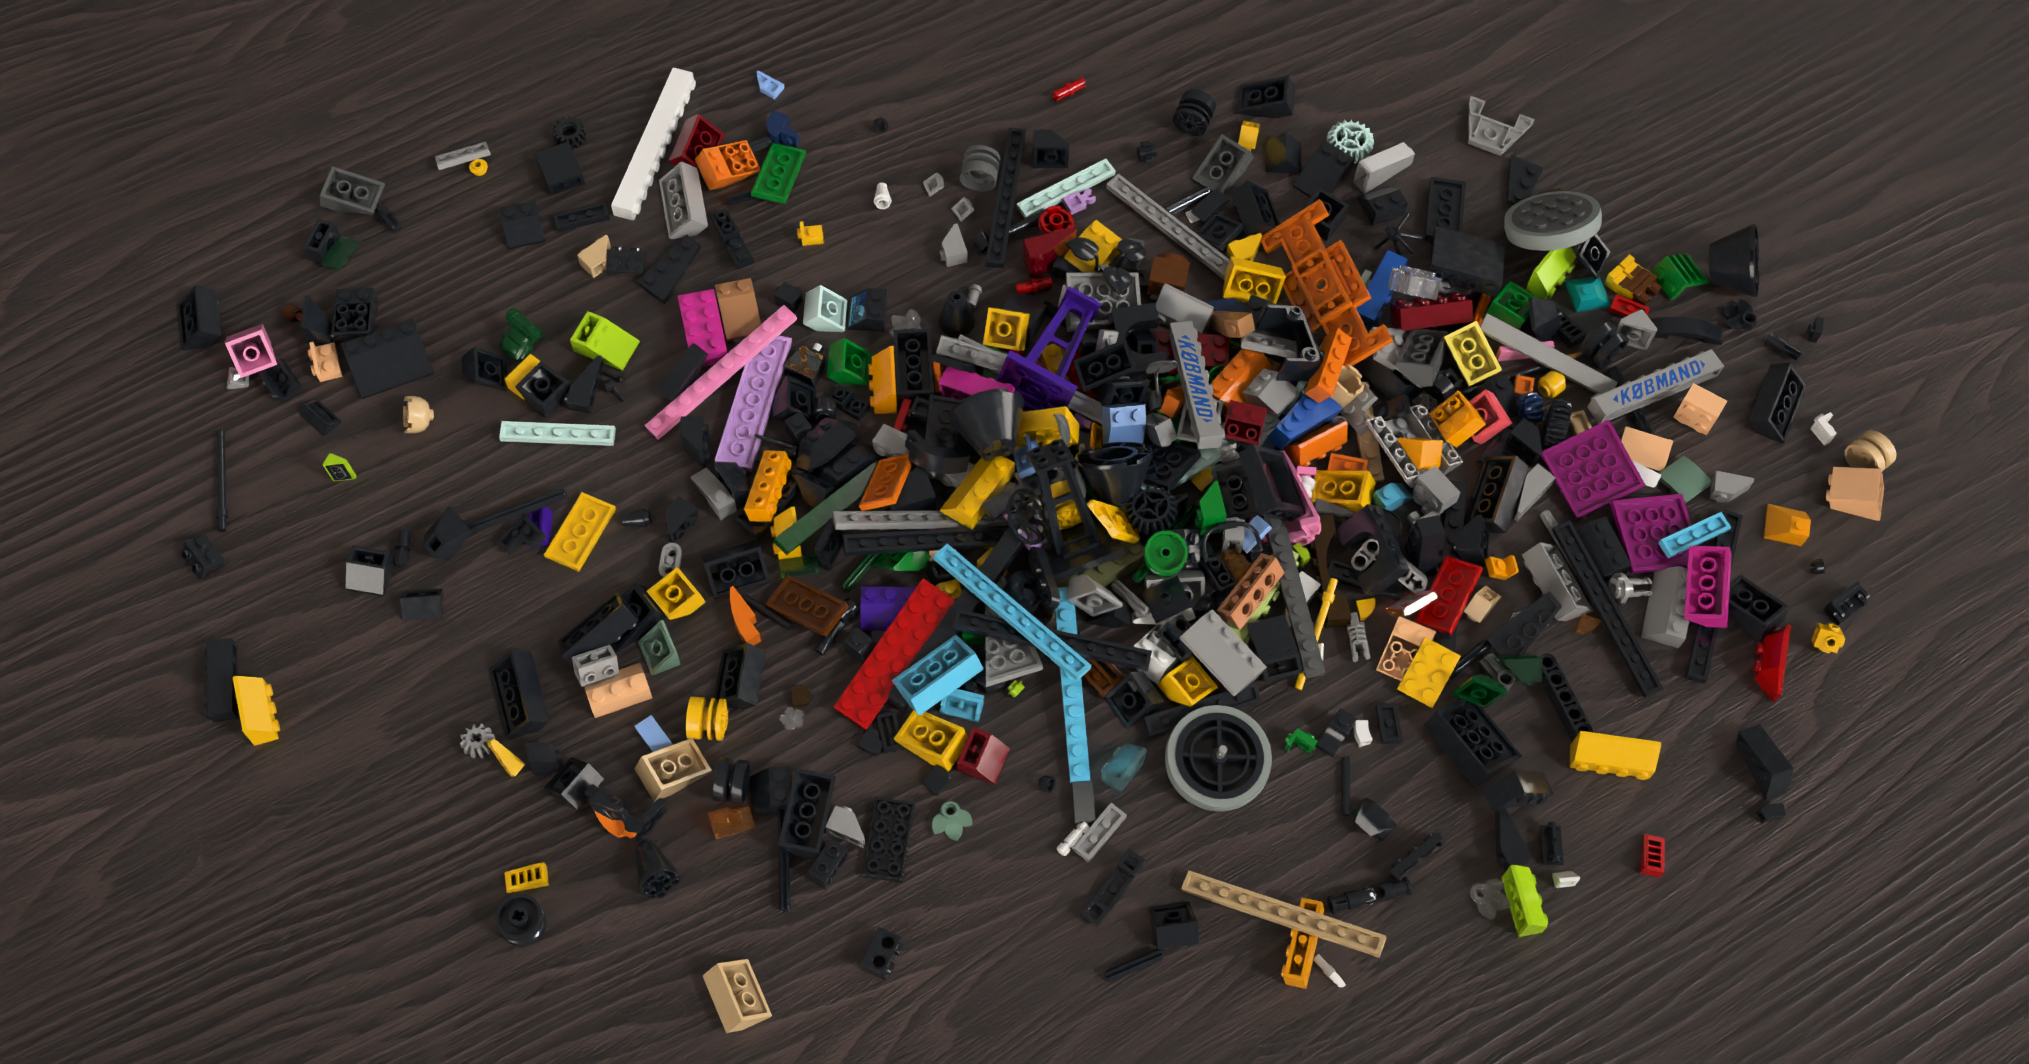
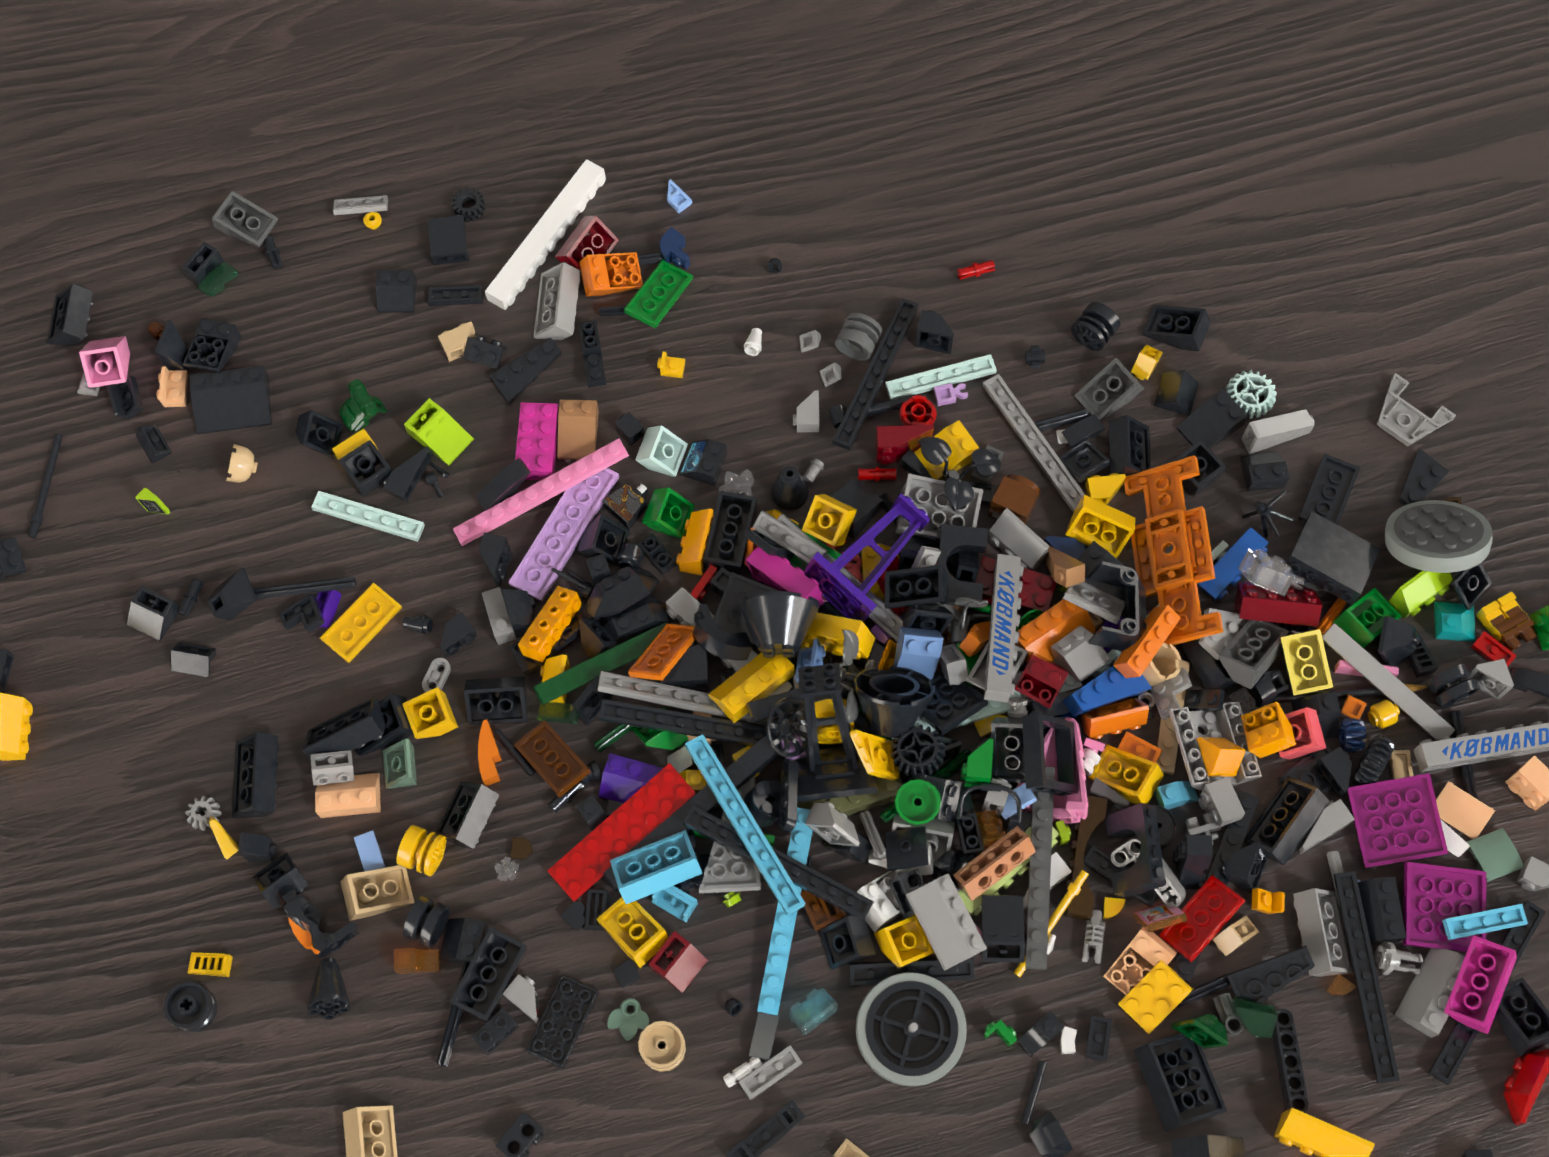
camera: 20 degrees right, 5 degrees up
(931, 574) = (680, 759): none -> white sticker
(982, 830) = (666, 1058): none -> tan wheel

